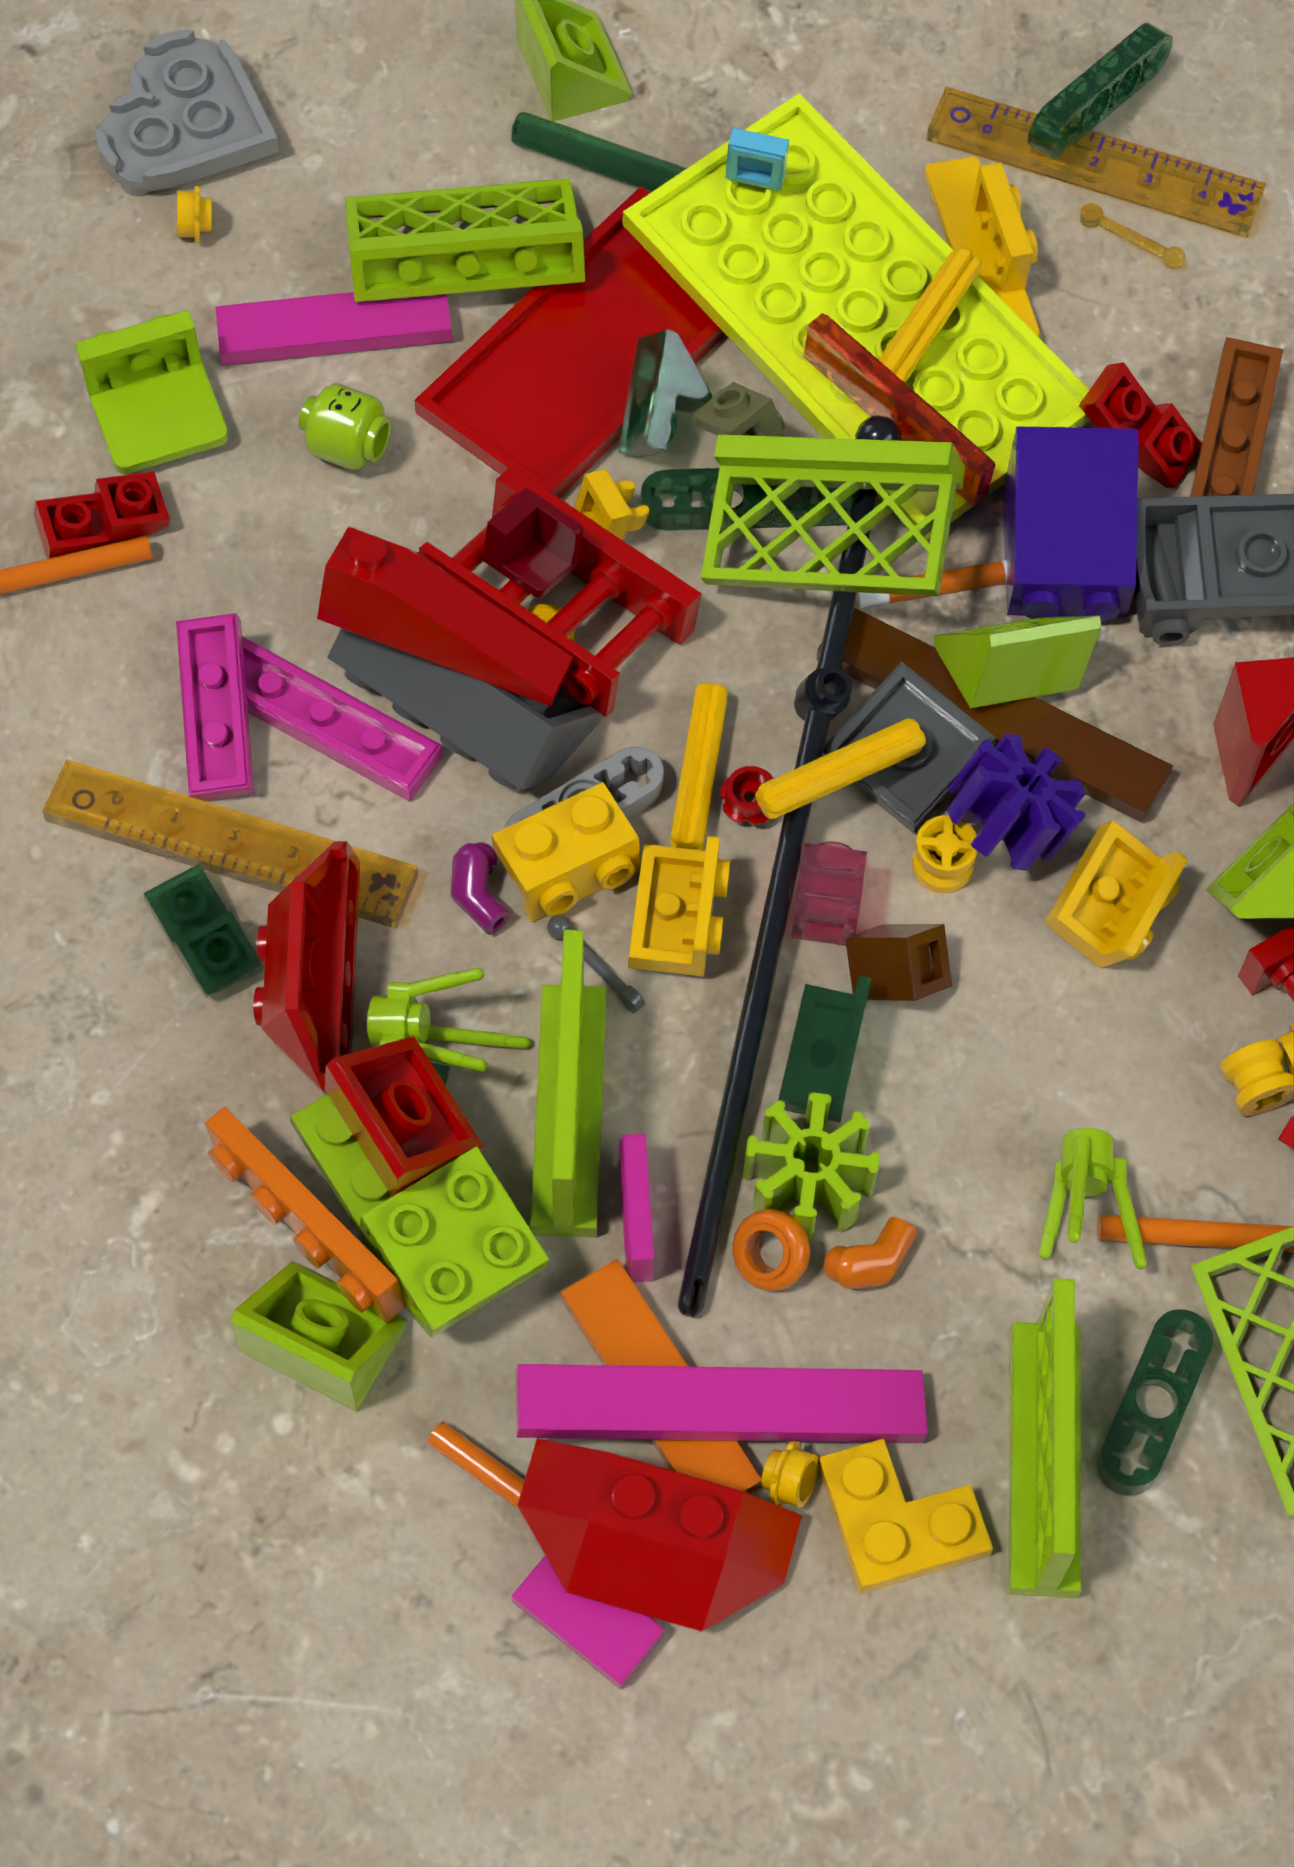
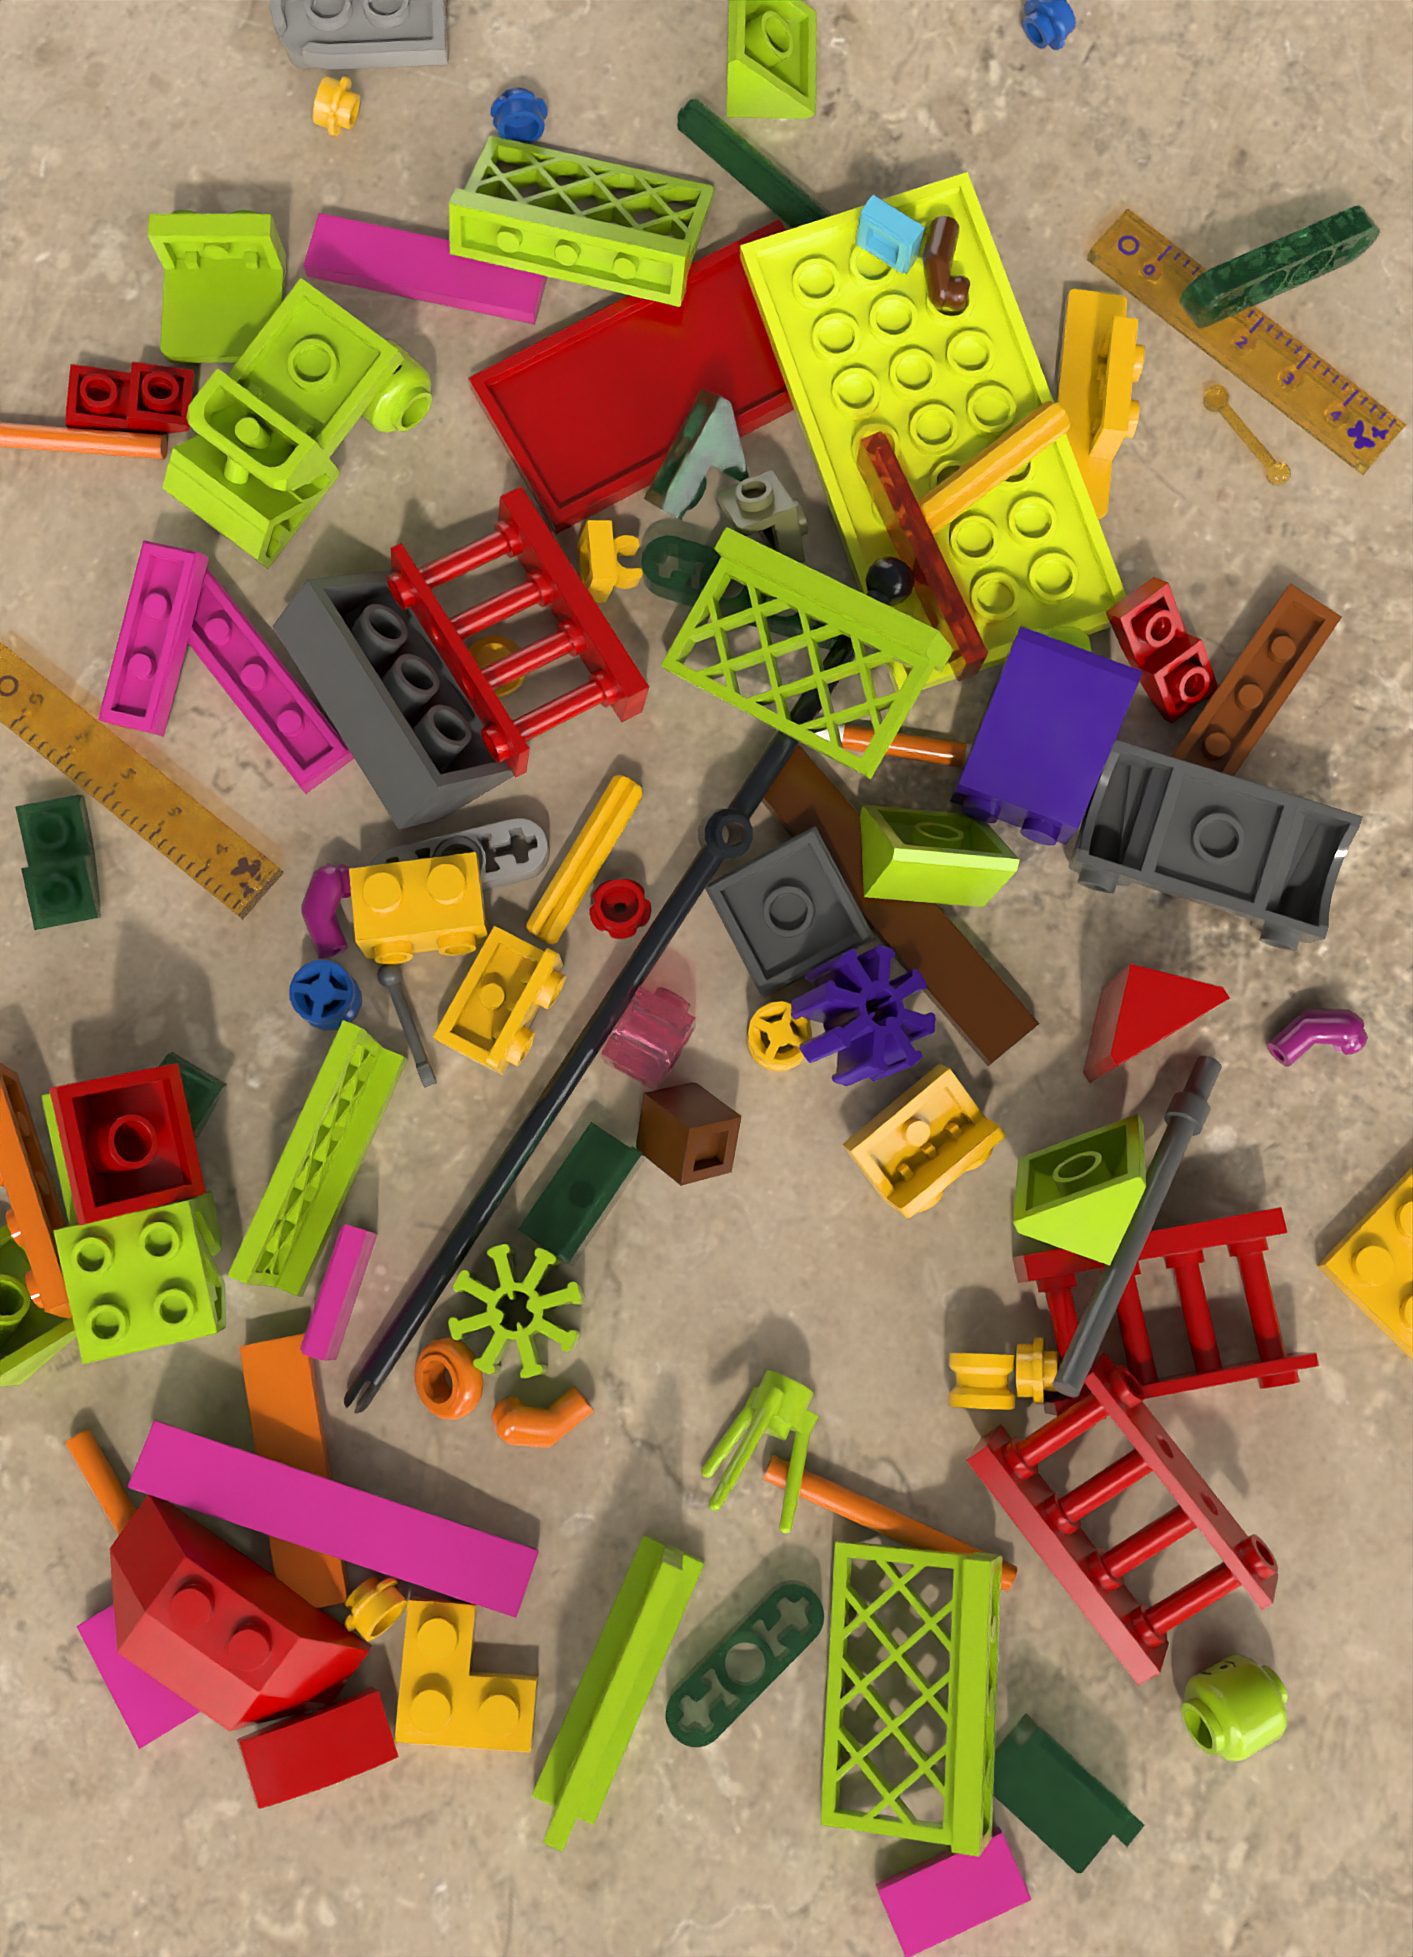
camera: 20 degrees right, 15 degrees up
(267, 483) = (277, 422): none -> lime piece
(311, 963) = (131, 950): red wedge -> none
(366, 172) = (519, 115): none -> blue plate
(401, 1016) = (194, 1025): lime plant -> none
(430, 613) = (366, 620): red wedge -> none
(509, 943) = (312, 991): none -> blue wheel
(533, 543) = (501, 580): dark red panel -> none
(791, 1617) = (317, 1748): none -> red slope
(807, 165) = (938, 258): none -> reddish brown arm
(840, 768) = (705, 921): yellow axle -> none

